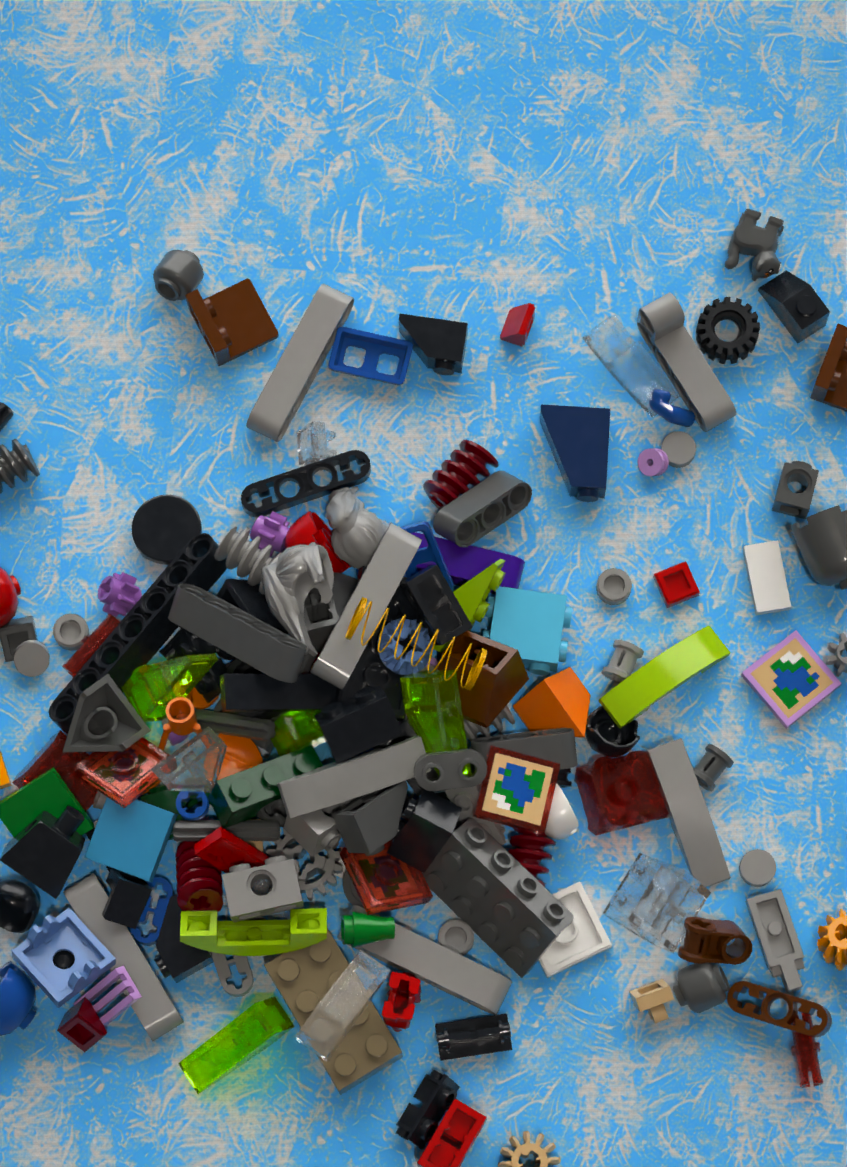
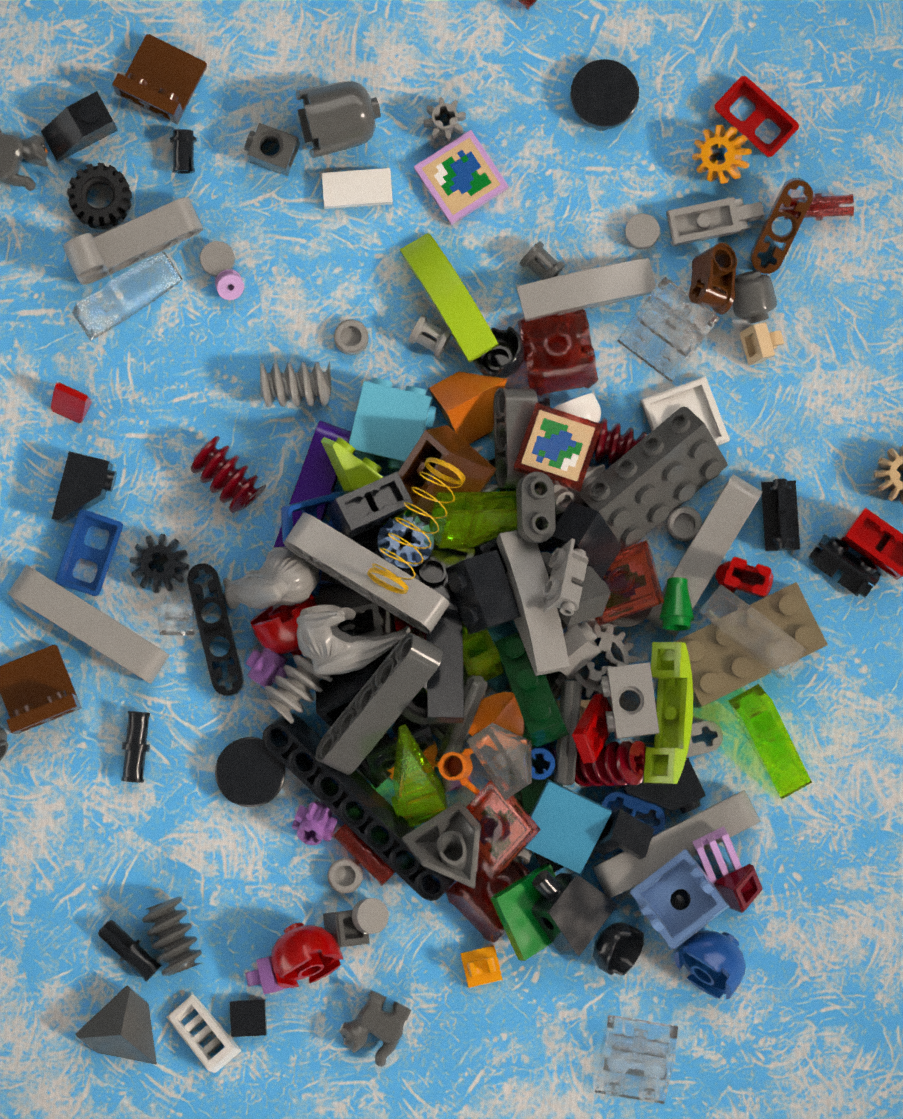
camera: 85 degrees left, 10 degrees up
(184, 419) = (135, 746): none -> black pin
(359, 432) = (148, 559): none -> black gear
(391, 804) = (559, 591): none -> light grey hinge
(482, 508) = (264, 455): dark grey beam -> none
(556, 535) = (295, 384): none -> light grey piece
(579, 447) = (208, 354): dark blue slope -> none
(670, 412) = (182, 261): blue arm -> none
(676, 584) = (355, 276): red tile -> none
(783, 405) = (183, 151): none -> black pin

